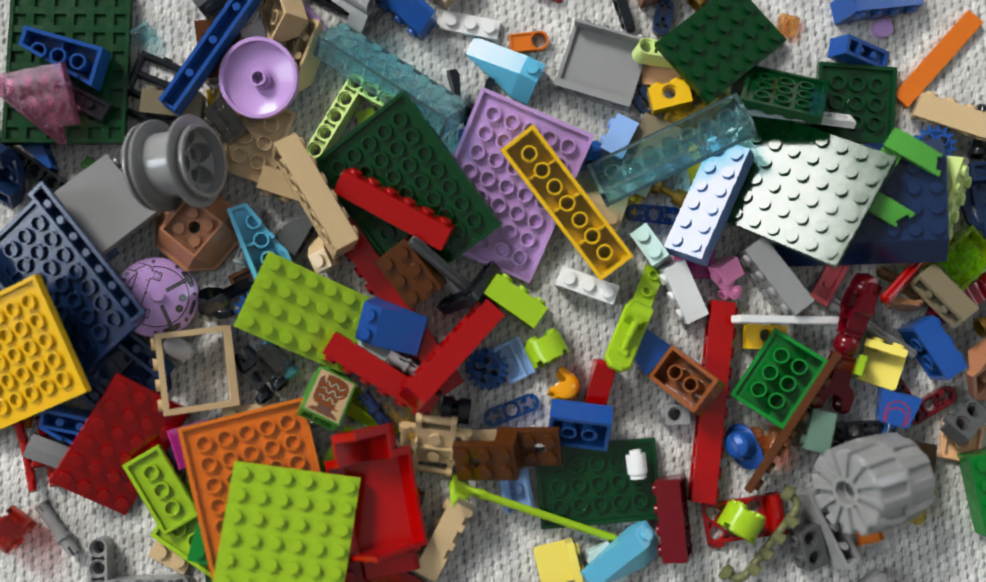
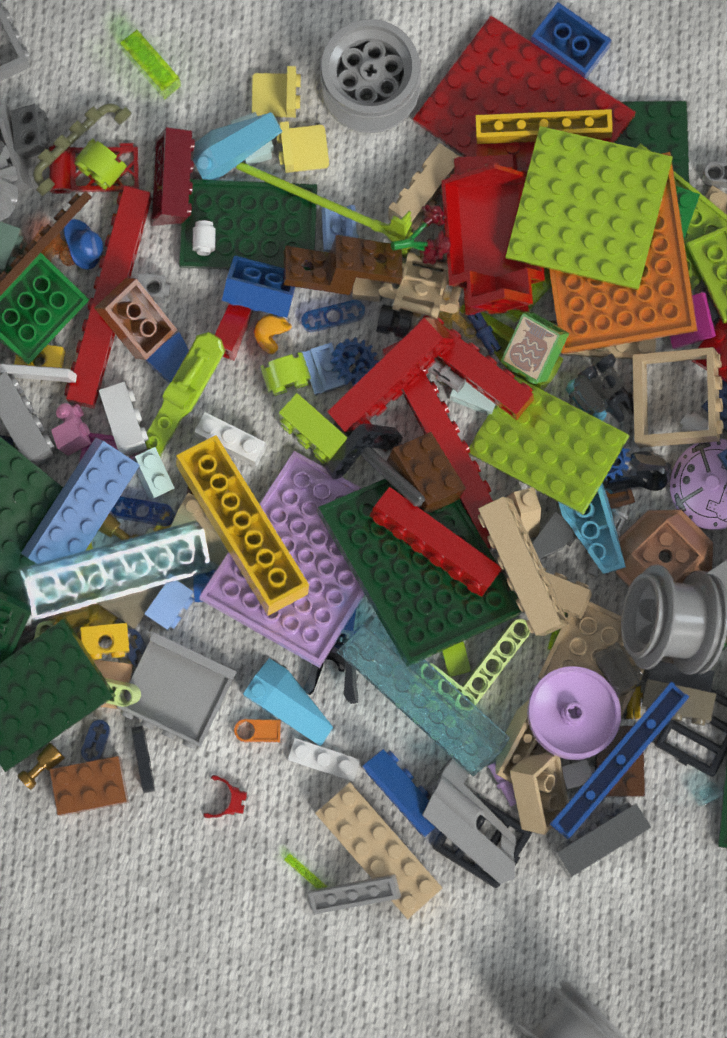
camera: 165 degrees left, 5 degrees down
(391, 326) = (455, 416): blue slope -> none
(428, 480) = (431, 249): none -> dark red plant

